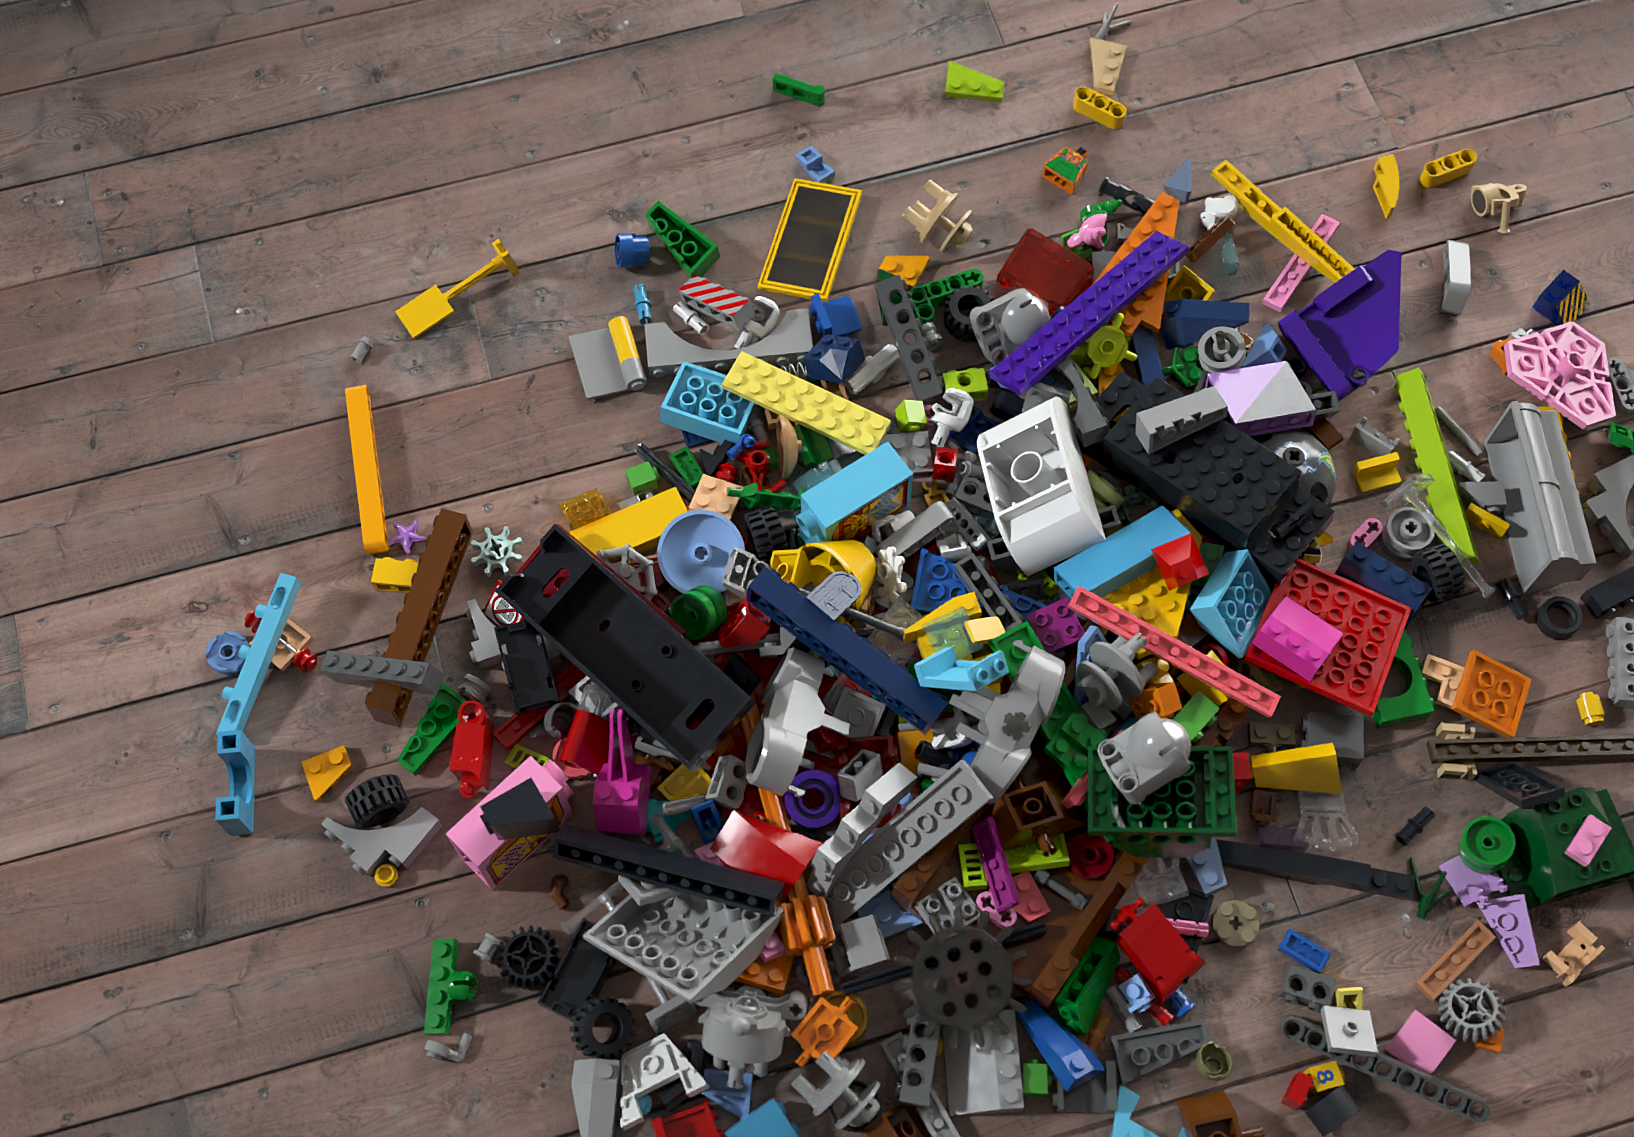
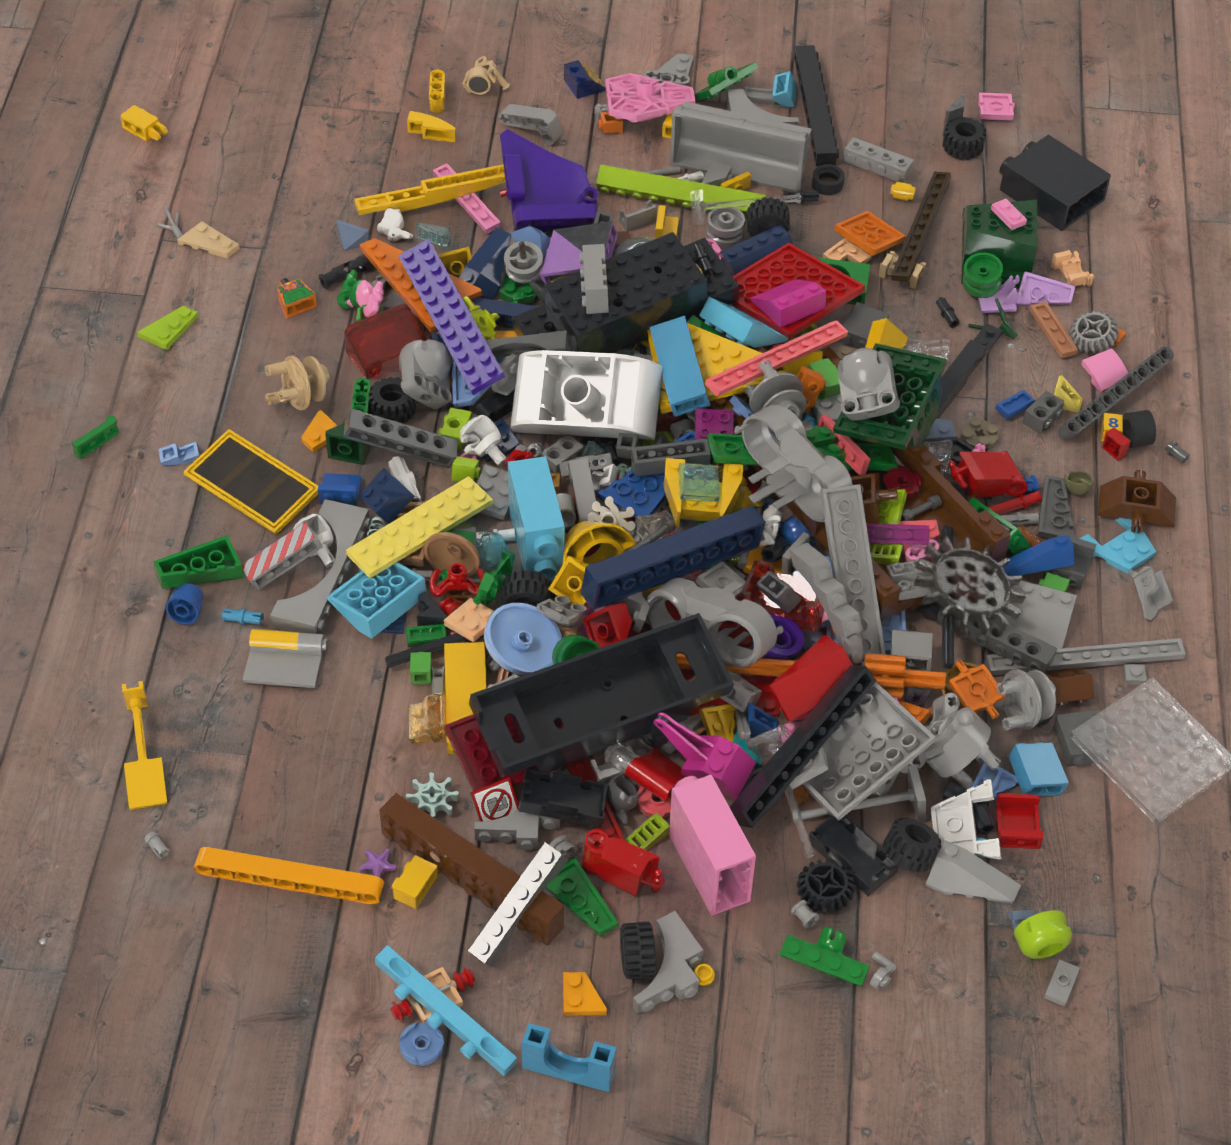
camera: 70 degrees left, 15 degrees down
(519, 813) = (728, 796): black slope -> none
(556, 891) = (774, 850): reddish brown arm -> none
(691, 318) = (278, 586): white pin -> none
(745, 442) = (434, 587): blue arm -> none
(835, 594) = (629, 537): window -> none
(947, 672) = (745, 471): medium azure panel -> none
(984, 629) = (705, 458): yellow slope -> none
(1015, 725) = (808, 448): clear smoke plant -> none
(1099, 107) = (249, 257): yellow beam -> none
(1137, 993) = (1014, 502): light blue bracket -> none
(1180, 561) = (707, 329): red slope -> none
(1208, 239) = (413, 226): reddish brown beam -> none
(1349, 1031) = (1087, 395): plate -> none
(1520, 785) = (949, 238): black plate -> none

